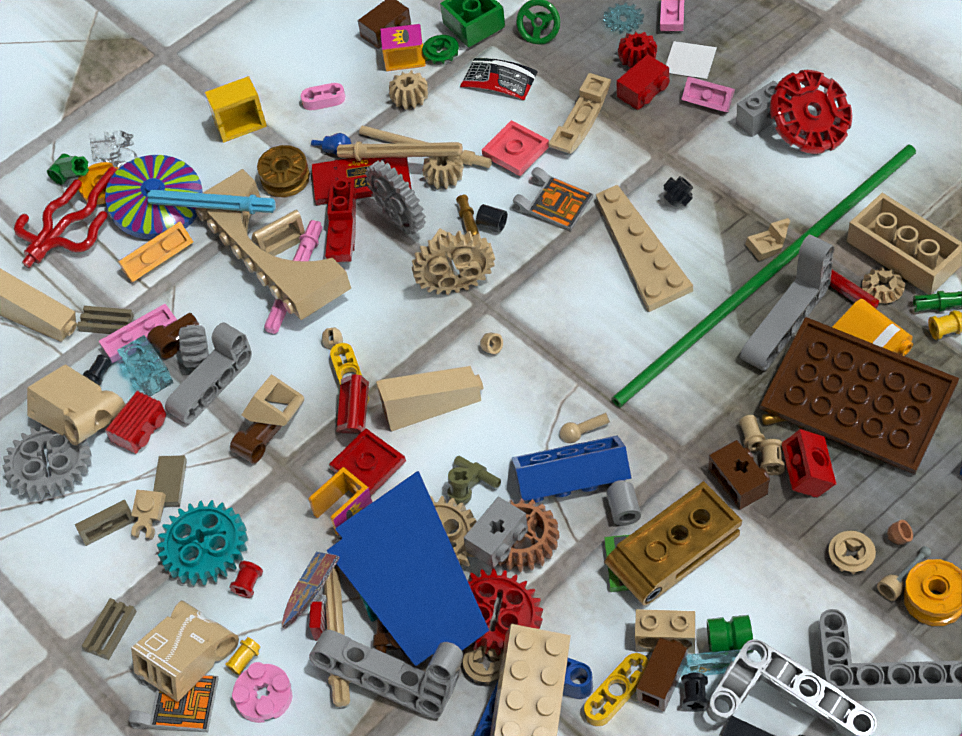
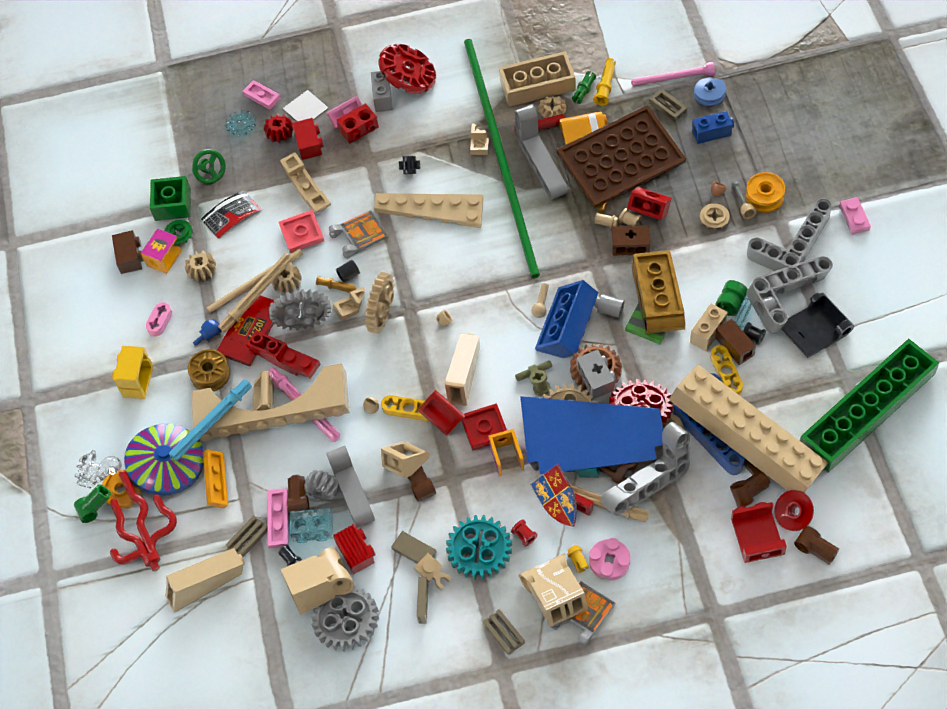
camera: 60 degrees left, 5 degrees up
(700, 113) = (357, 123): none -> red brick

